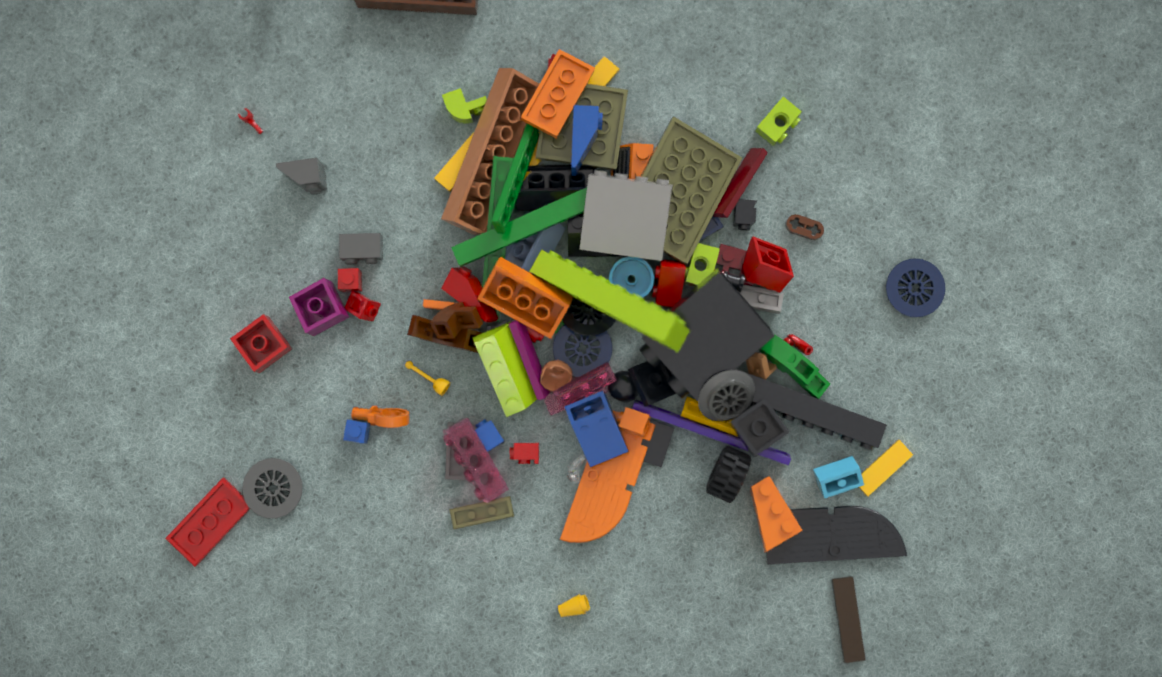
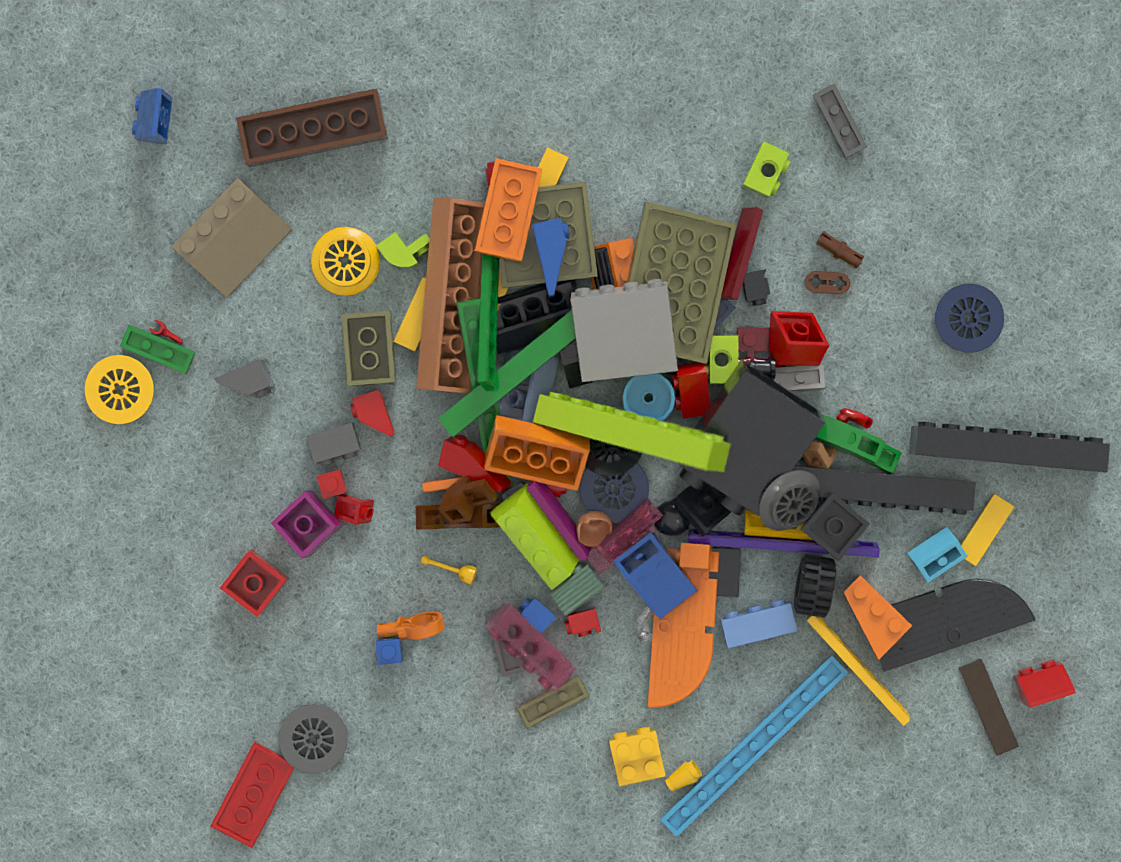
camera: 20 degrees left, 5 degrees up
(180, 146) = (94, 381): none -> yellow piece
(239, 132) = (157, 349): none -> green plate
(326, 58) = (232, 237): none -> dark tan slope
(400, 229) = (373, 412): none -> red slope
(412, 177) = (369, 348): none -> olive brick
(417, 124) = (371, 261): none -> yellow piece
(527, 423) = (576, 589): none -> sand green brick
(539, 578) = (636, 756): none -> yellow plate
(640, 597) = (753, 745): none -> dark azure plate
(672, 494) = (758, 623): none -> medium blue brick
(747, 556) = (859, 669): none -> yellow tile
(822, 203) = (840, 250): none -> reddish brown pin
(849, 98) = (839, 120): none -> dark grey plate
(901, 612) = (1043, 683): none -> red slope
(923, 404) = (1007, 448): none -> black brick

